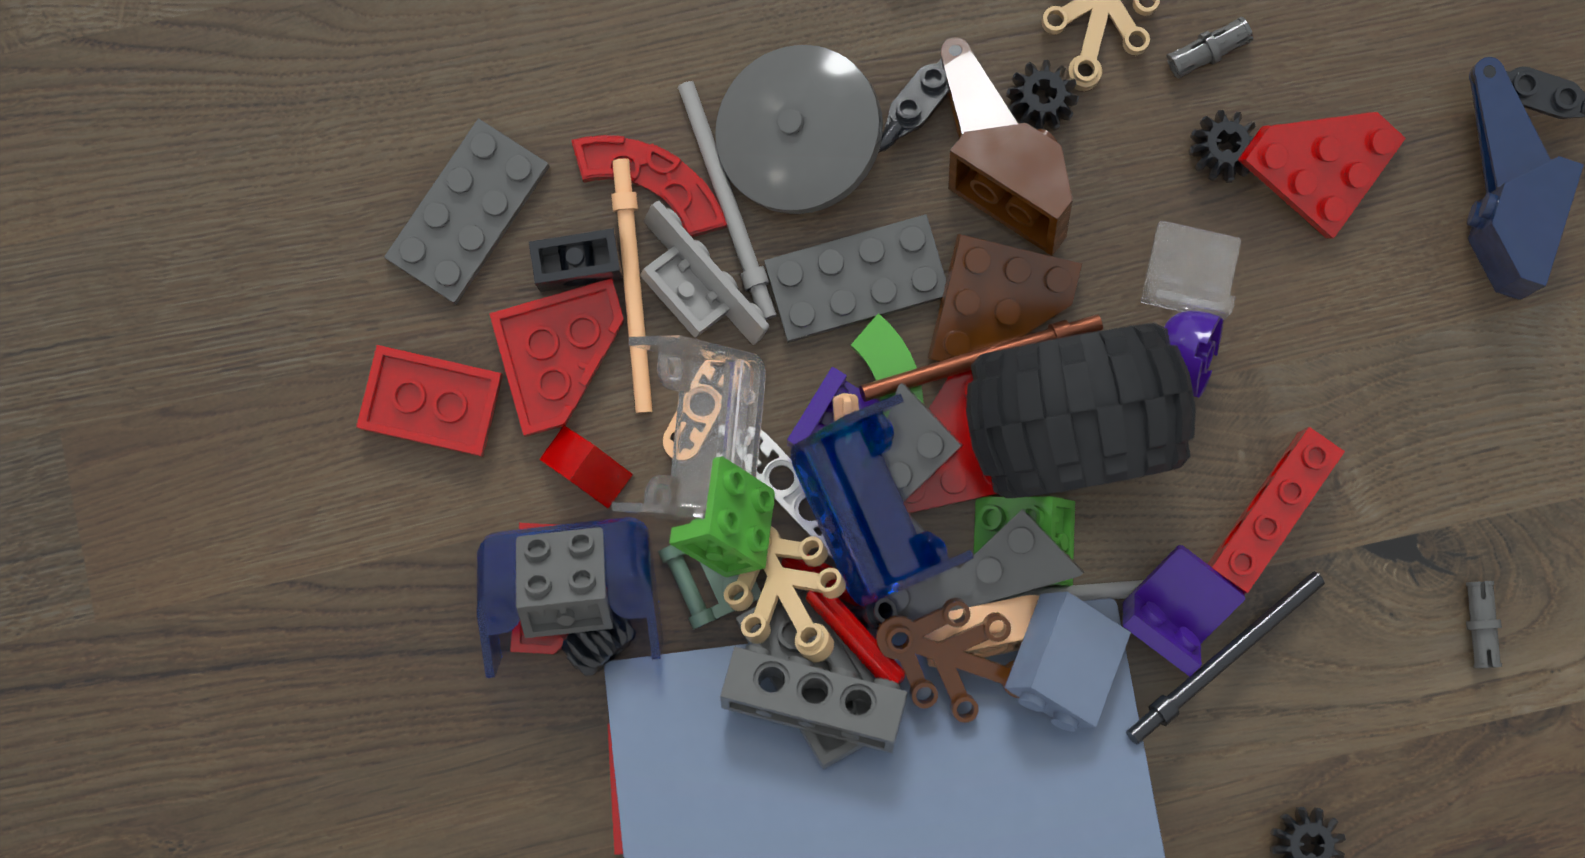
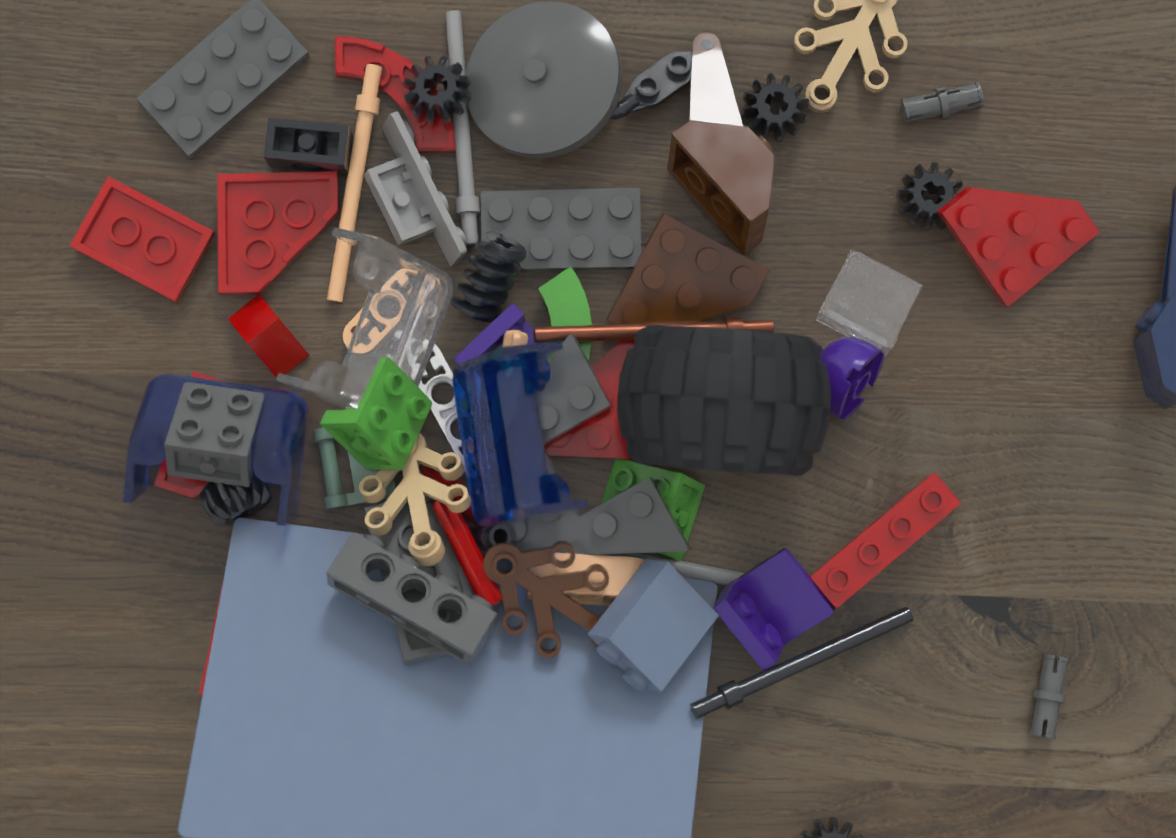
camera: 15 degrees right, 0 degrees up
(682, 158) = (428, 79): none -> black gear
(801, 347) = (491, 278): none -> black piece

